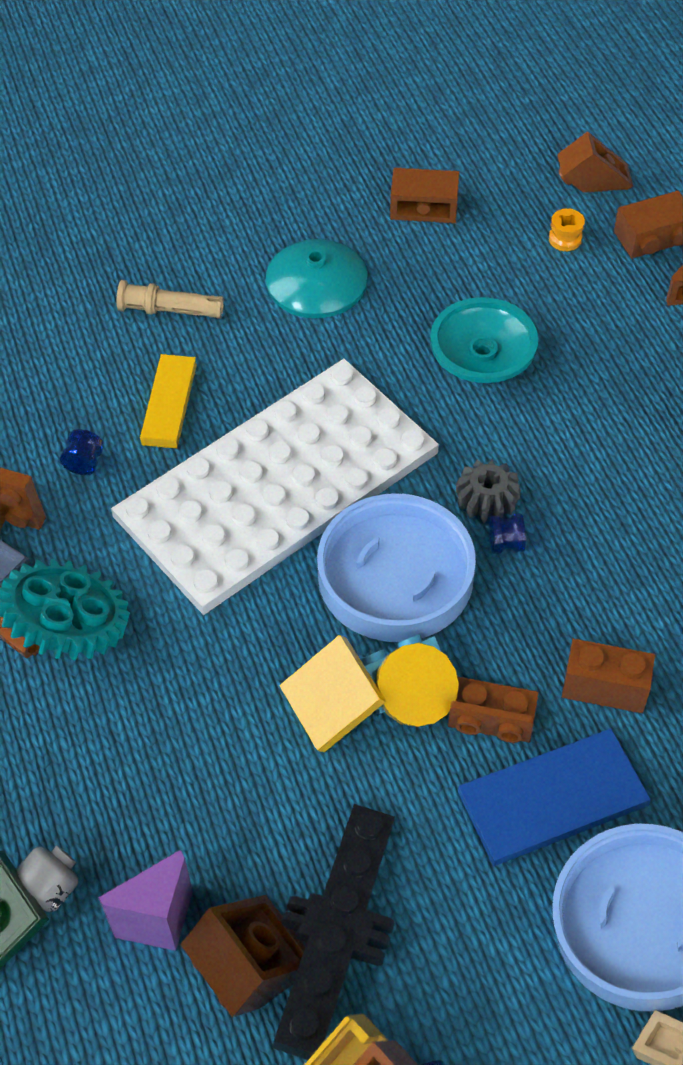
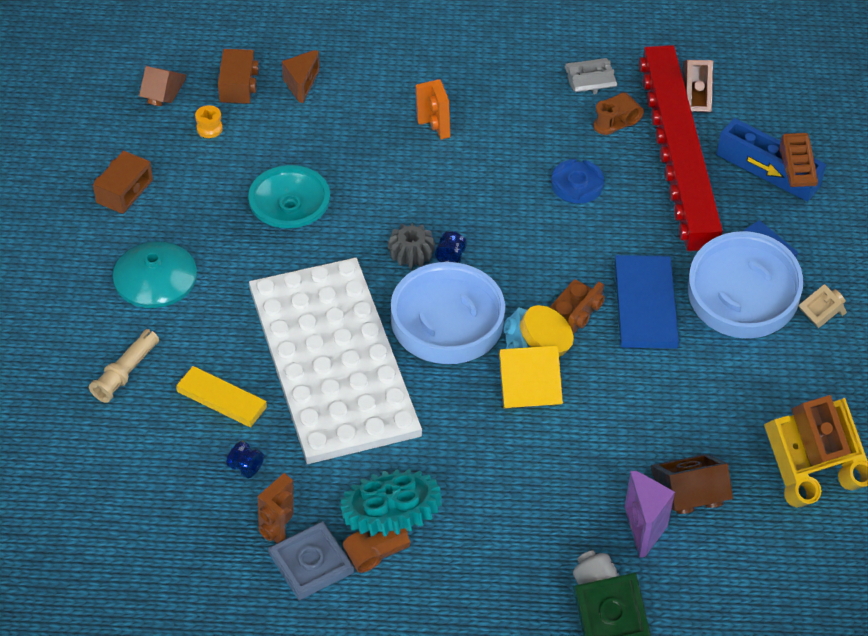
camera: 70 degrees left, 5 degrees down
(335, 931) = (696, 429): black hinge -> none
(608, 675) = (582, 240): dark orange brick -> none

